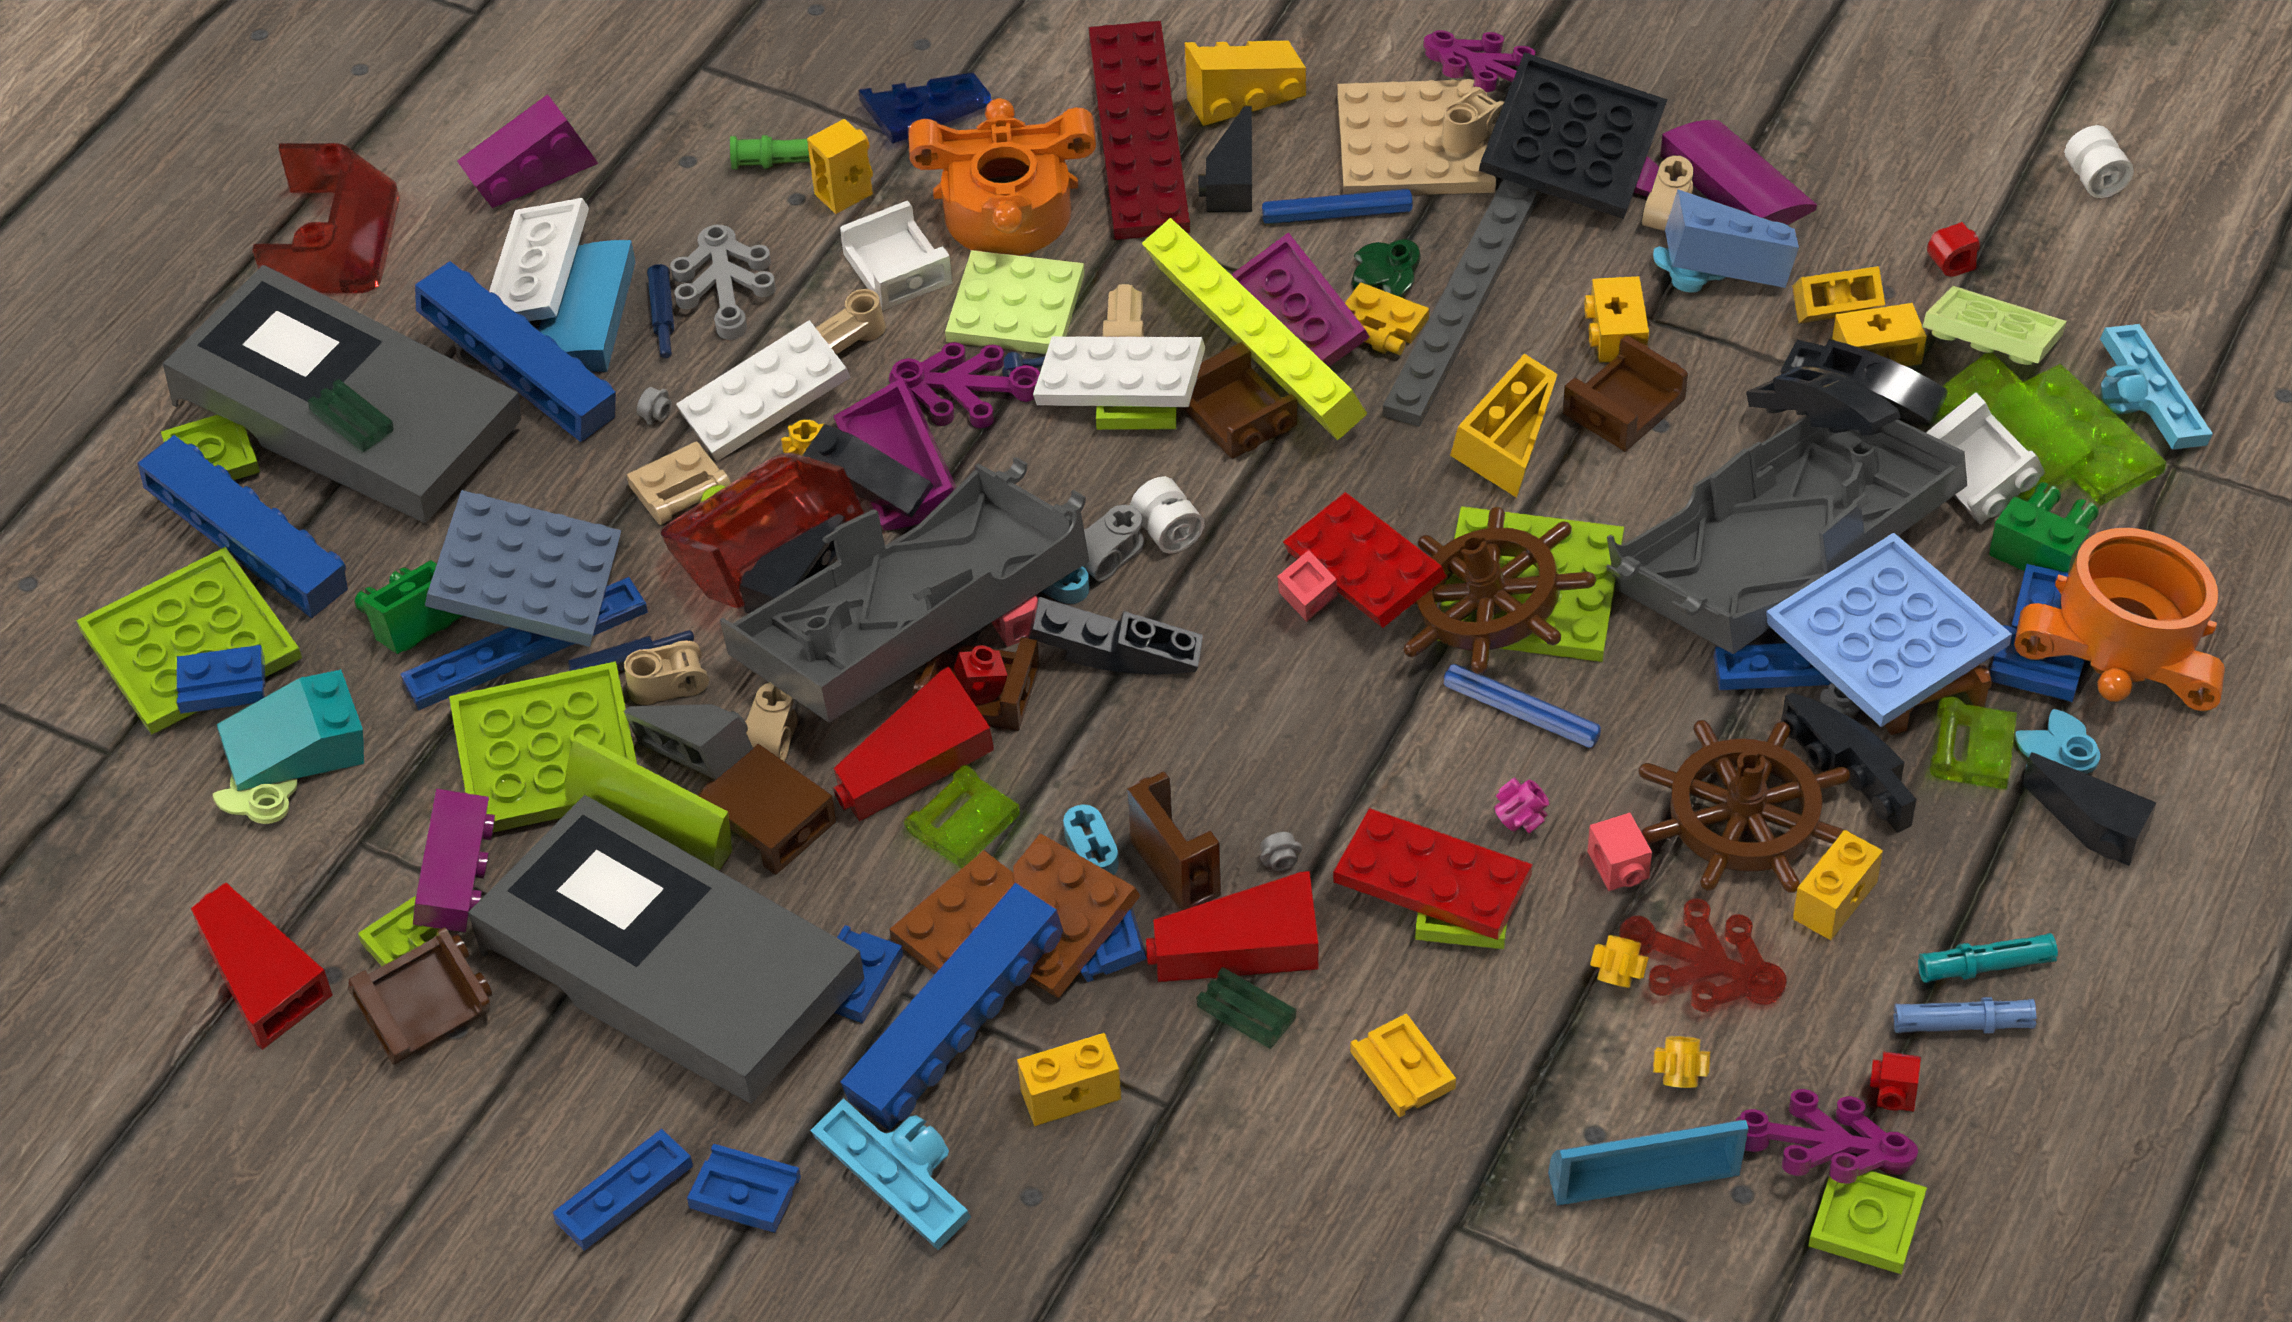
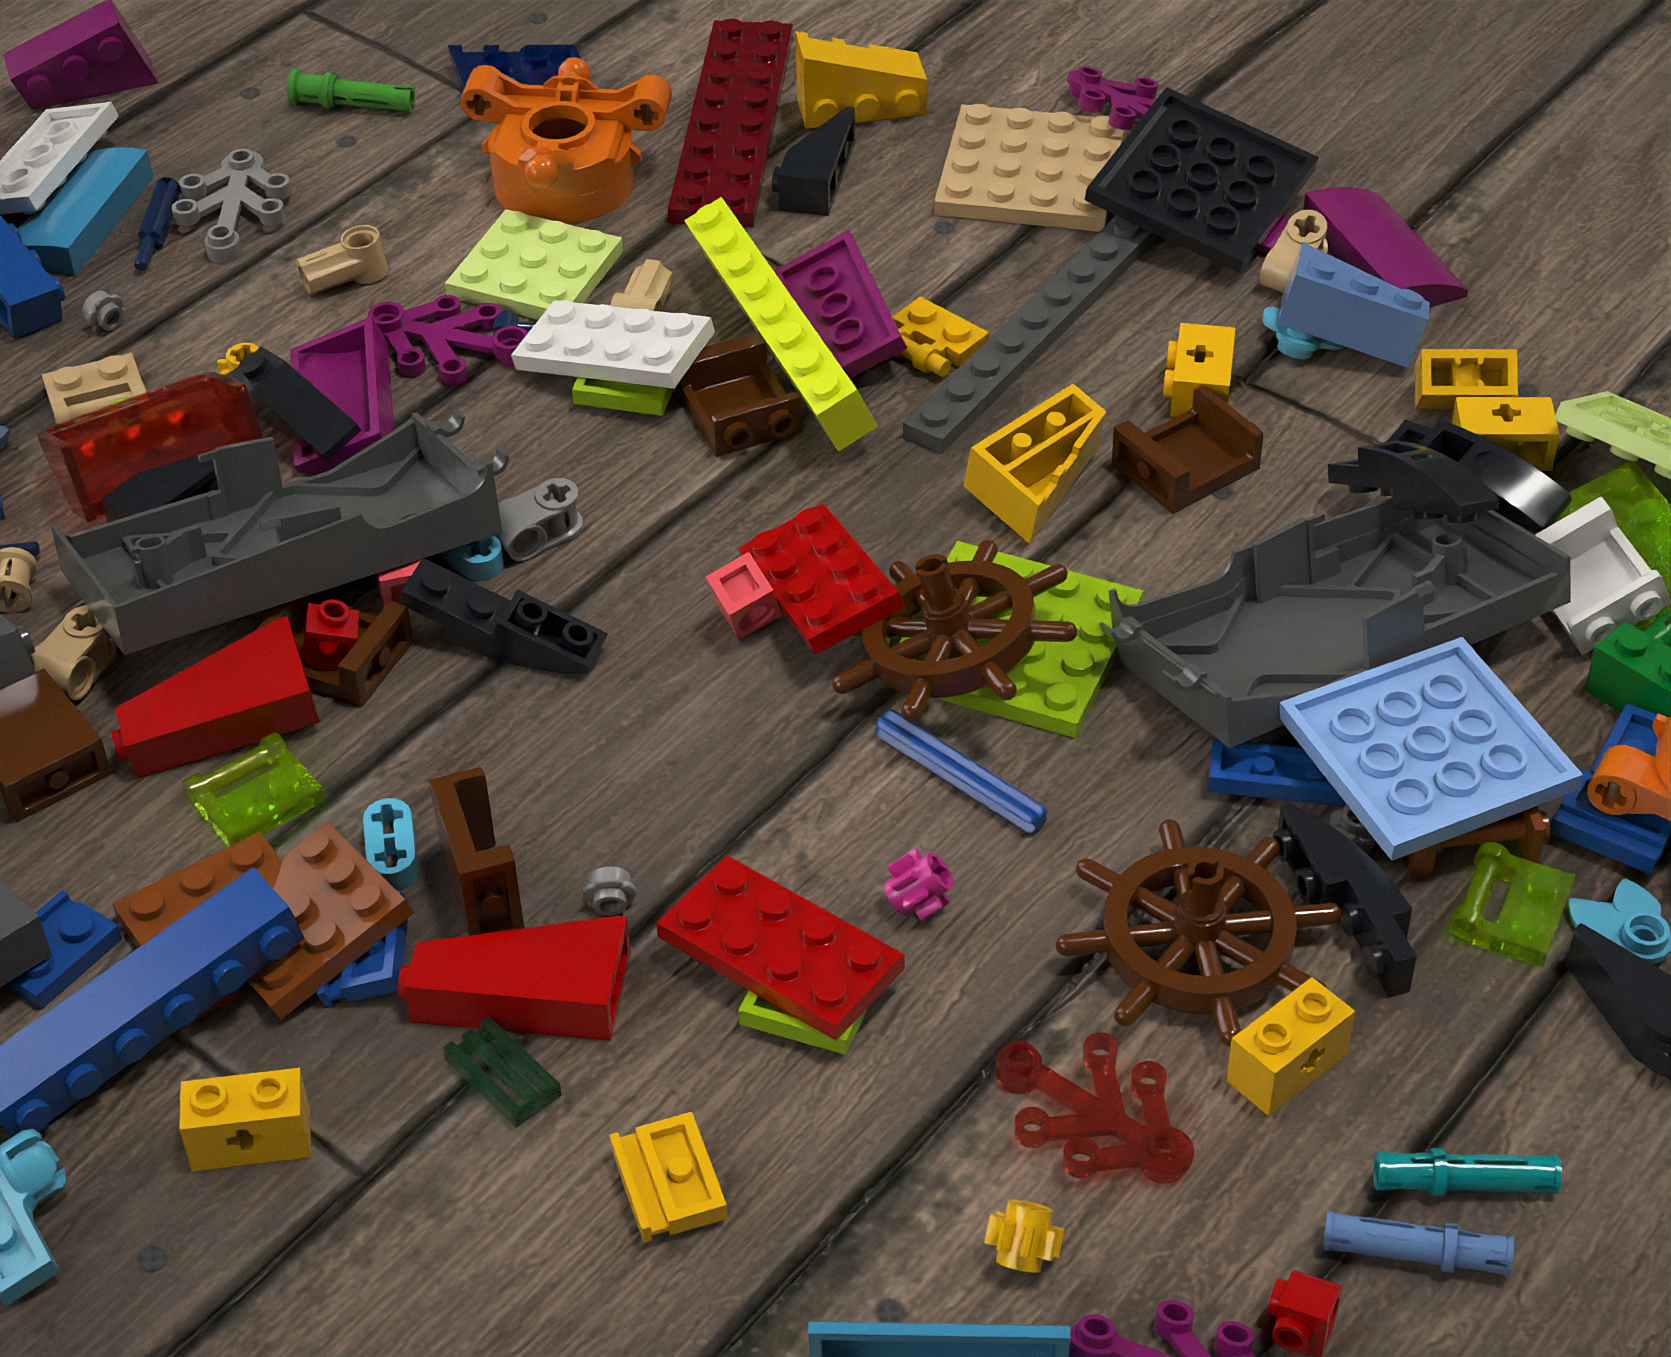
camera: 10 degrees right, 5 degrees down
(763, 390) = (221, 311): white plate -> none
(840, 165) = (394, 107): yellow brick -> none
(894, 255) = (422, 203): white panel -> none
(1168, 515) = (613, 499): white wheel -> none
(1337, 206) = (921, 220): blue axle -> none
(1384, 267) = (958, 285): dark green plate -> none
(1469, 121) = (1086, 149): tan piece -> none
(1619, 852) = (1024, 960): coral brick -> none
(1619, 961) = (981, 1093): yellow gear -> none
(1954, 249) = (1618, 353): red plate -> none

